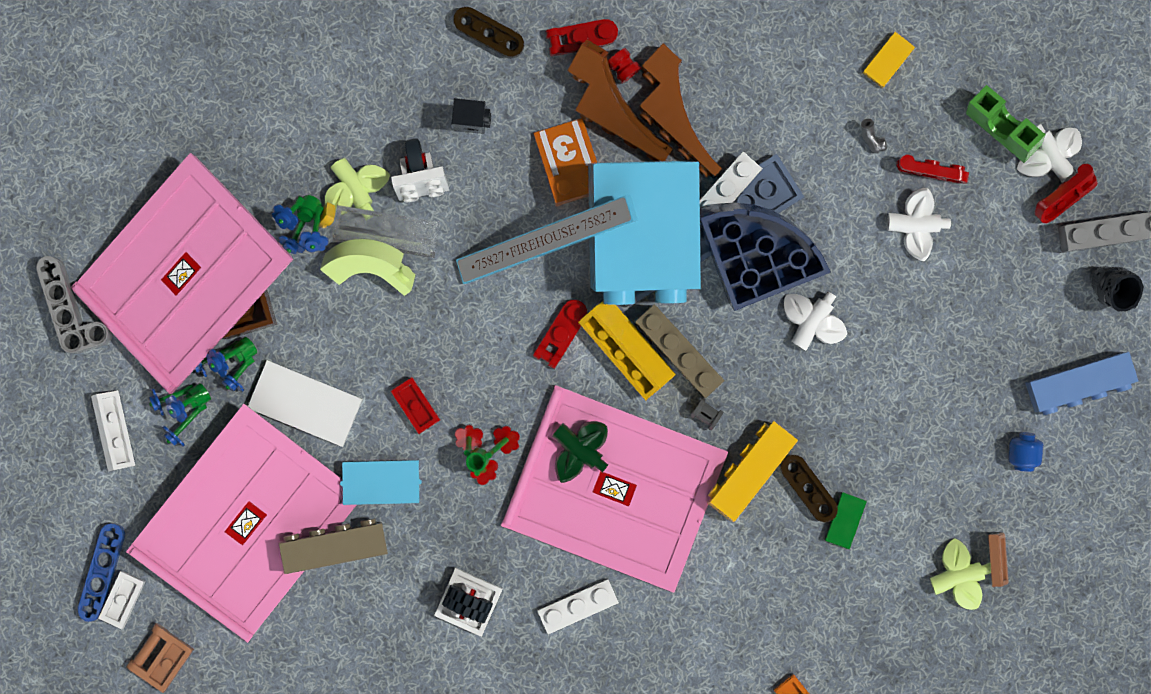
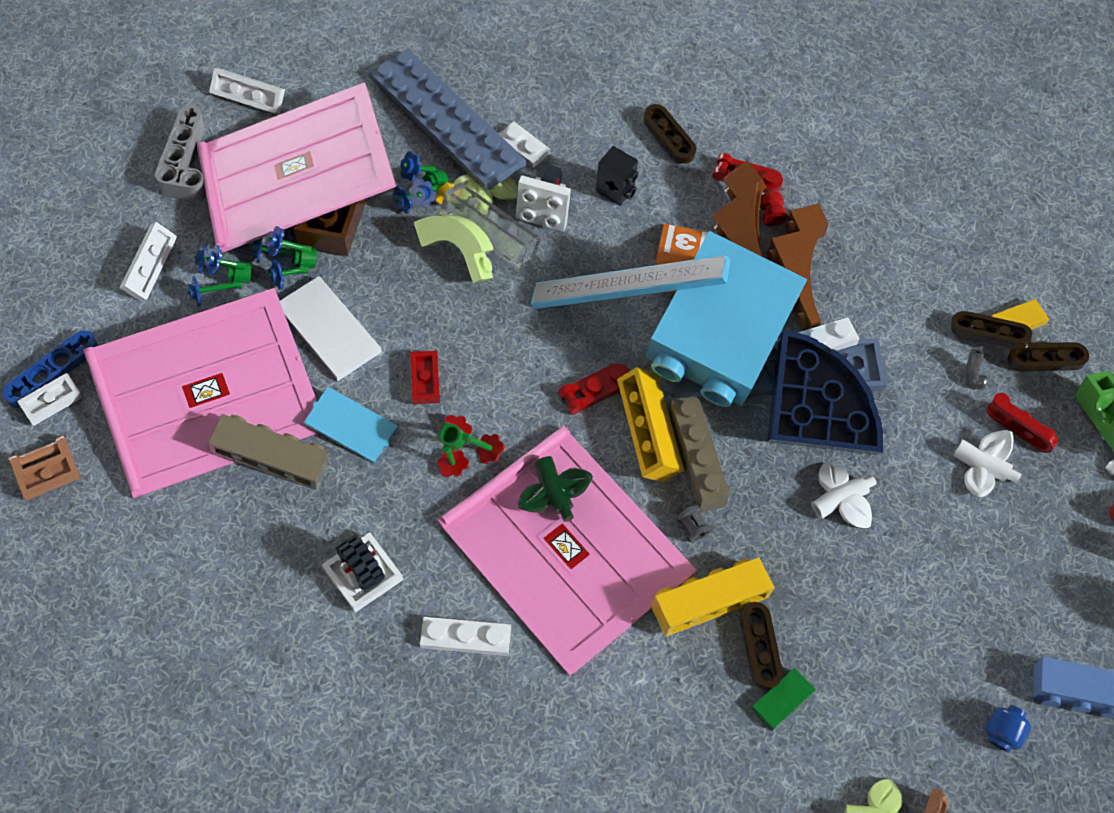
camera: 25 degrees right, 25 degrees down
(77, 206) = (247, 90): none -> white plate
(278, 134) = (448, 119): none -> sand blue plate
(362, 118) = (525, 143): none -> white plate
(859, 87) = (991, 330): none -> dark brown plate
(938, 81) = (1056, 352): none -> dark brown plate

